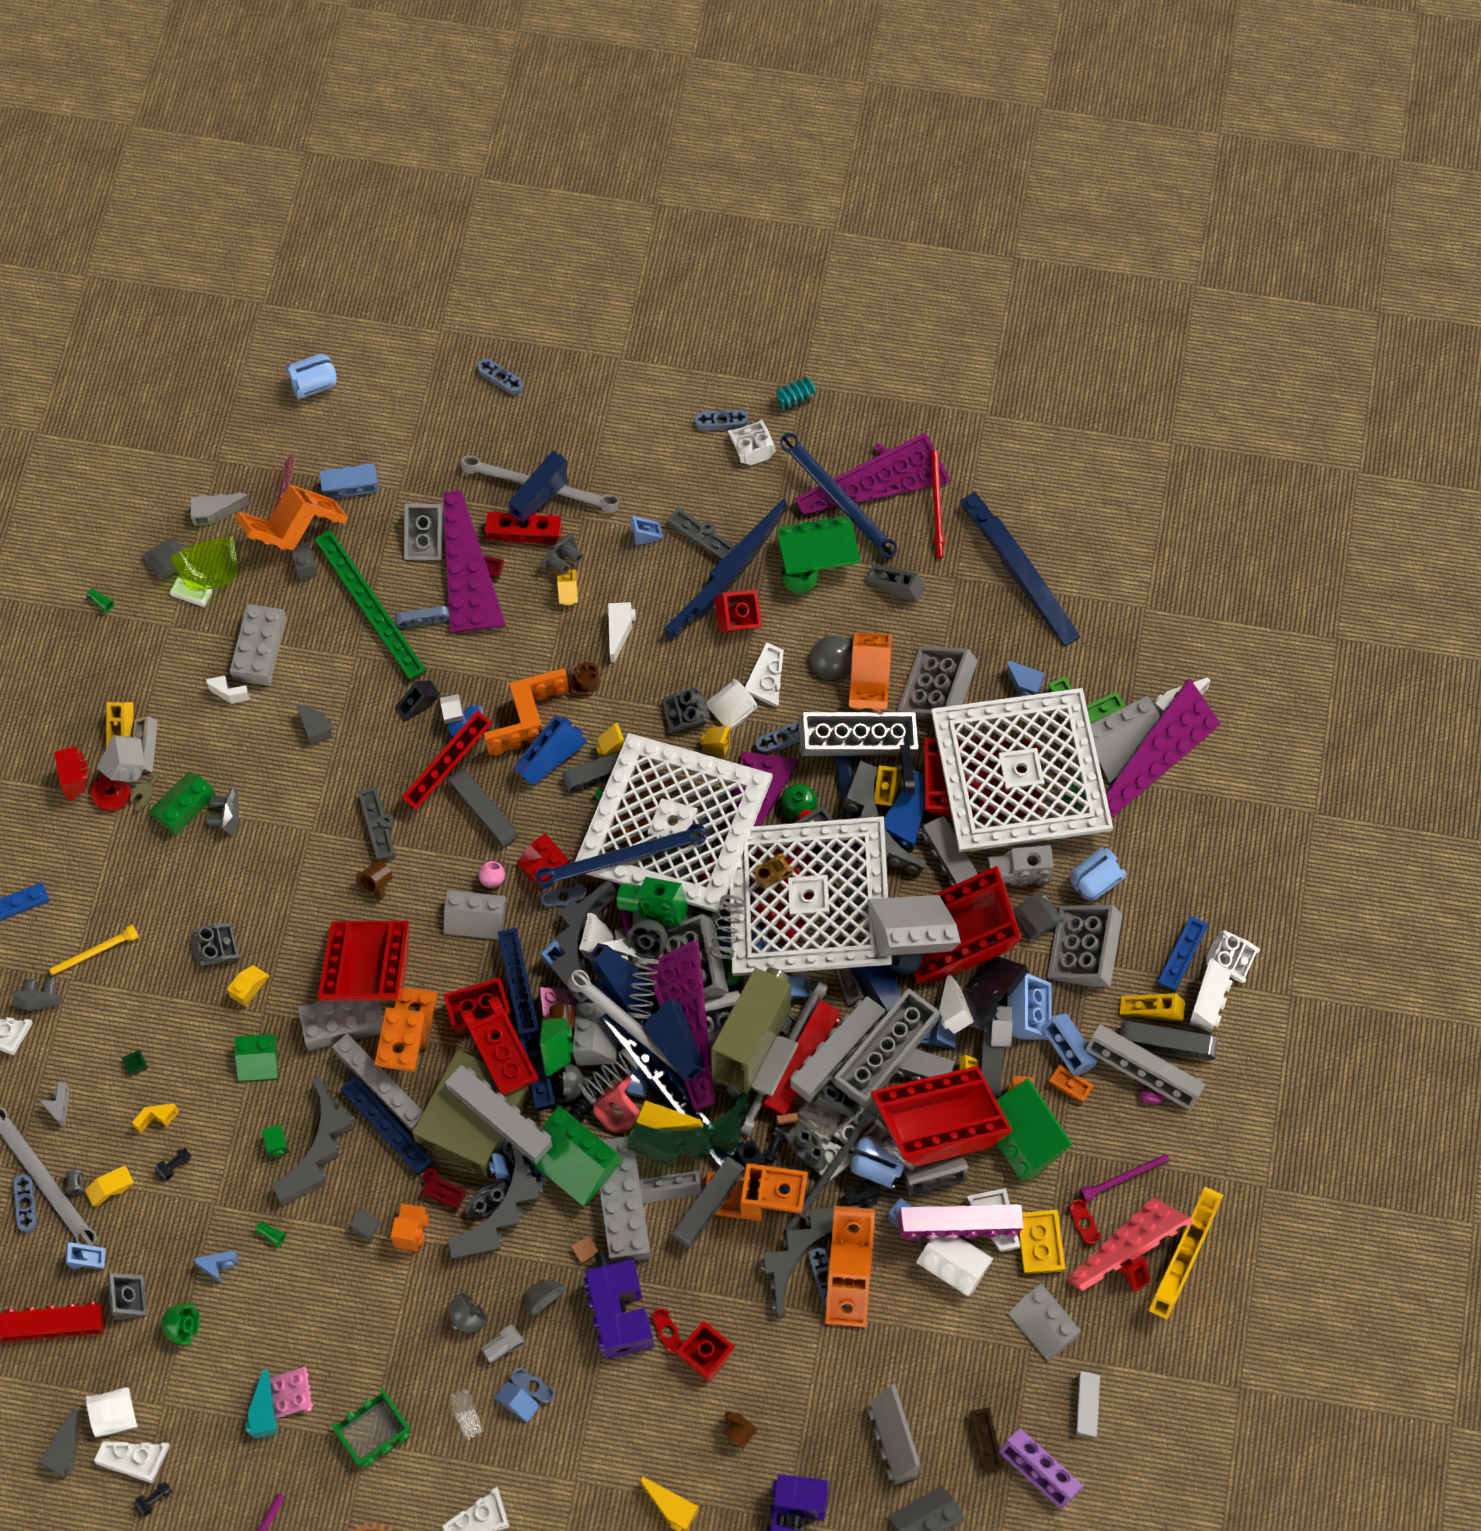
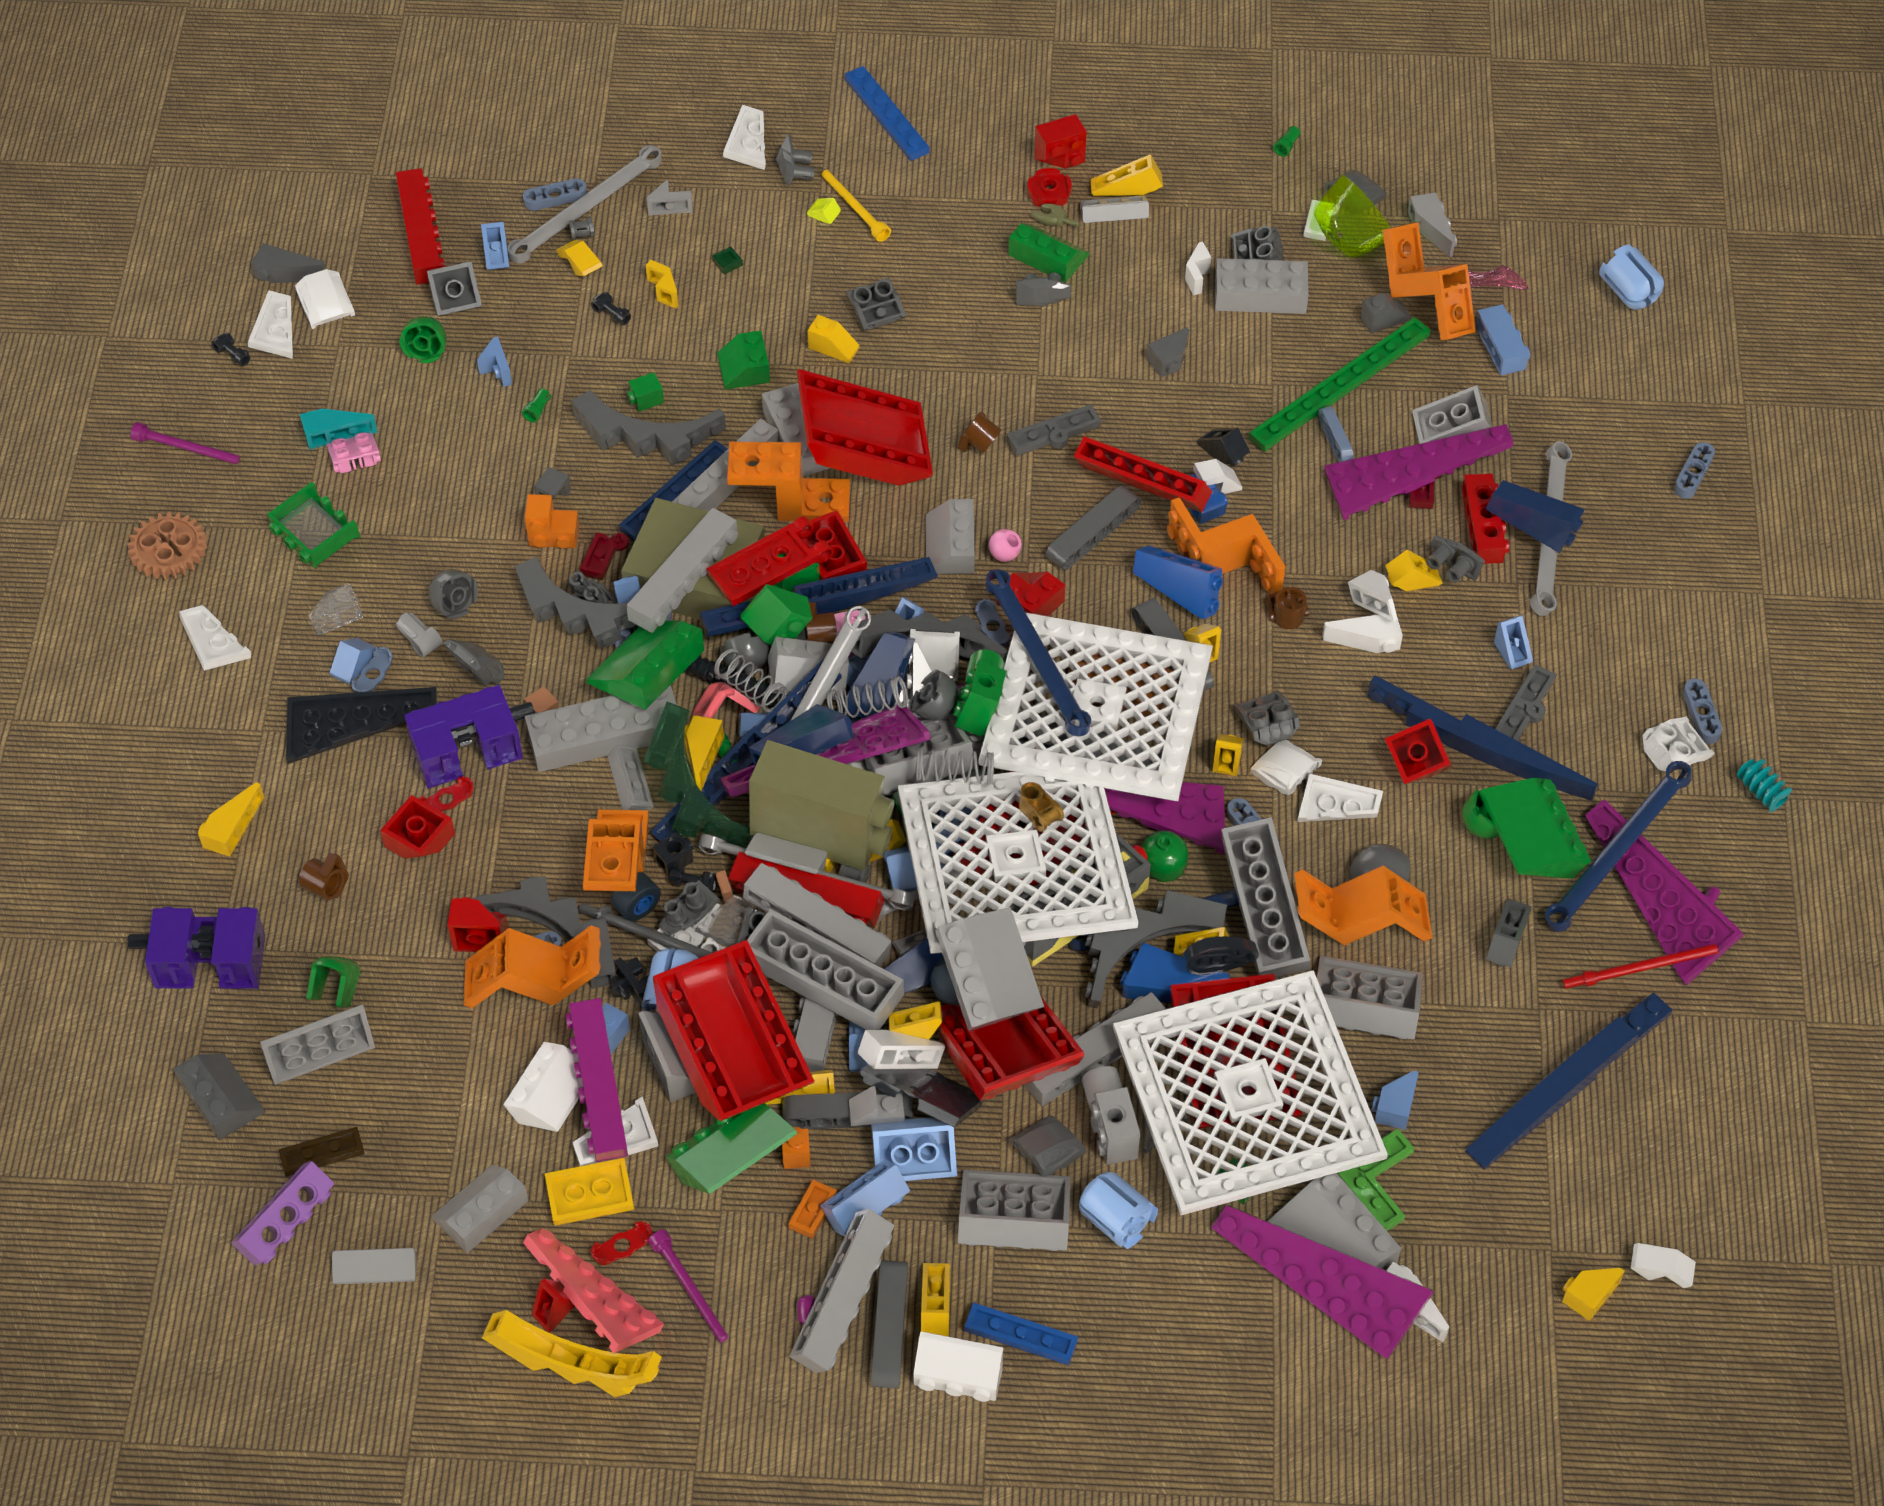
camera: 80 degrees right, 10 degrees down
(93, 977) = (824, 210): none -> neon yellow slope
(123, 759) = (1083, 180): light grey slope -> none
(217, 642) = (1258, 244): none -> dark grey slope
(579, 1418) = (338, 719): none -> black wing
(588, 614) = (1373, 593): none -> white slope
(709, 1202) = (592, 803): dark grey beam -> none
(803, 1308) = (473, 925): none -> red slope
(831, 1426) = (349, 973): none -> green piece
(932, 986) = (917, 1021): none -> yellow slope
(1167, 540) = (1658, 1262): none -> white slope
(1183, 587) = (1591, 1290): none -> yellow slope
(1233, 954) = (1025, 1397): white slope -> none

